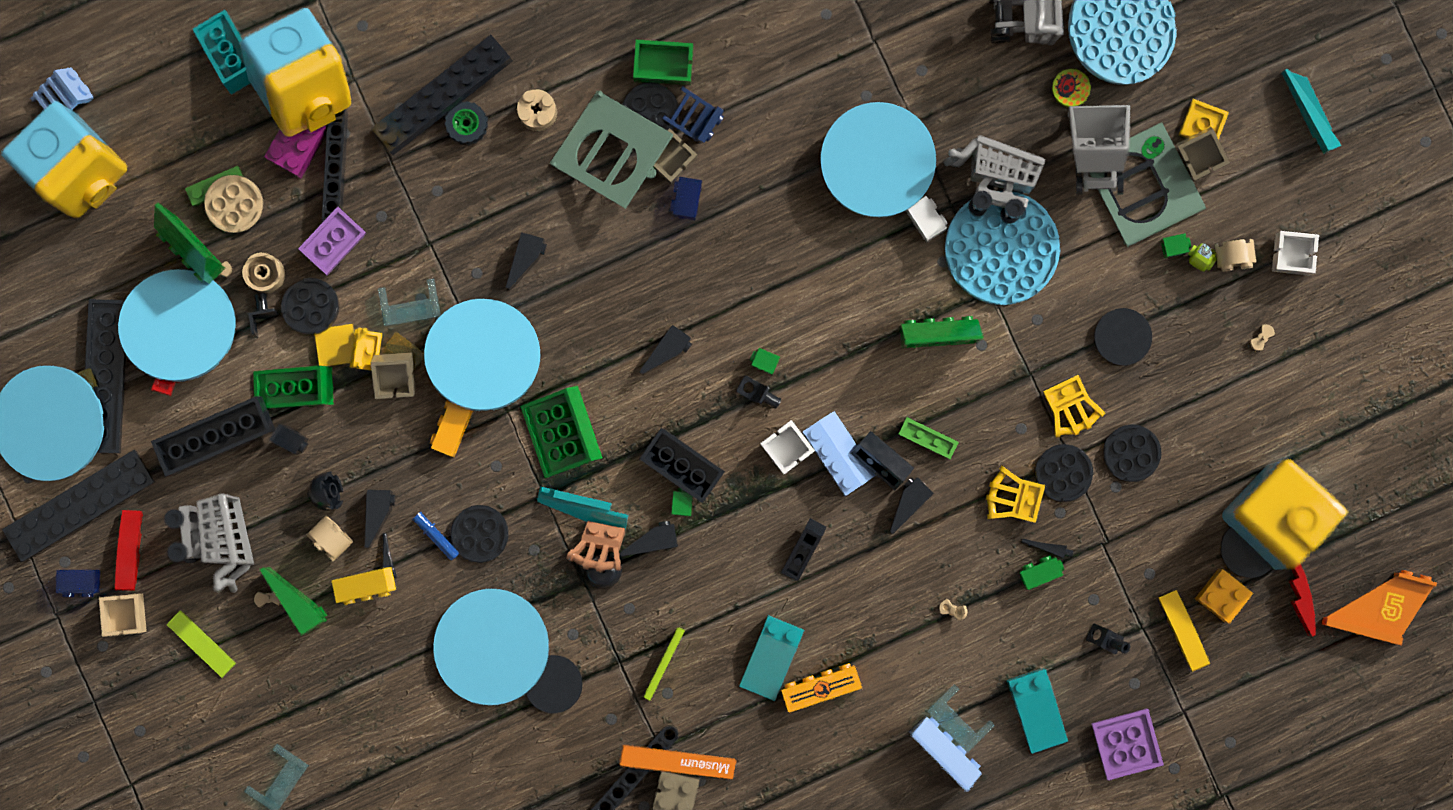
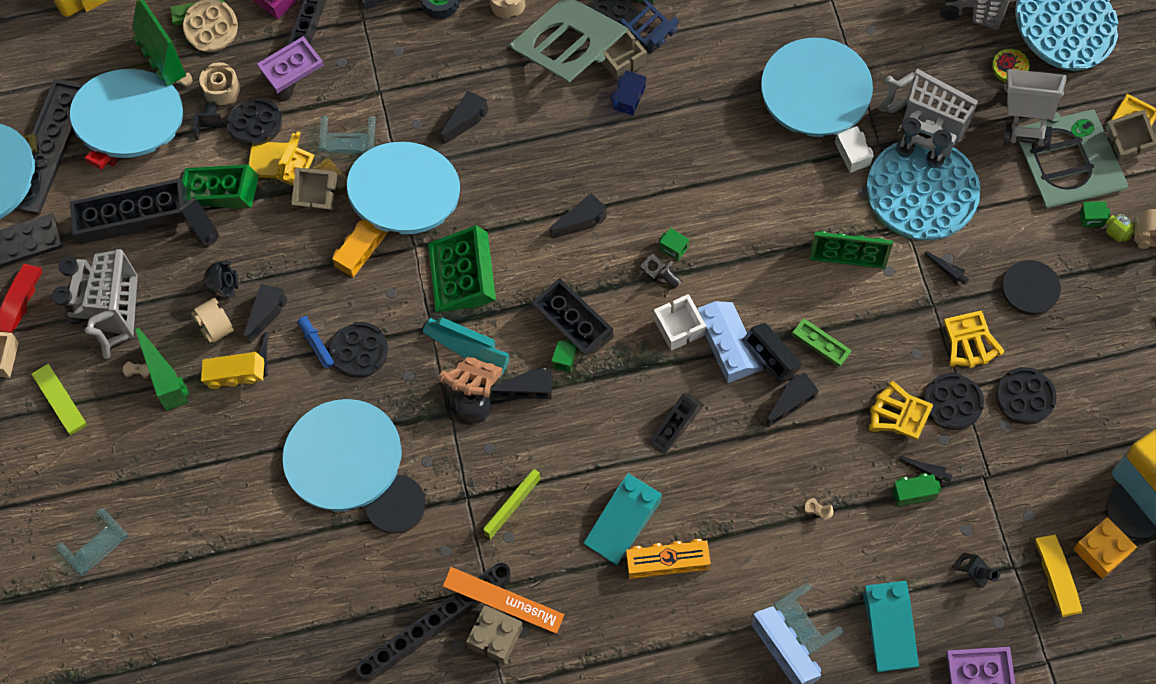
camera: 10 degrees right, 20 degrees down
(1044, 335) = (953, 272): none -> black piece

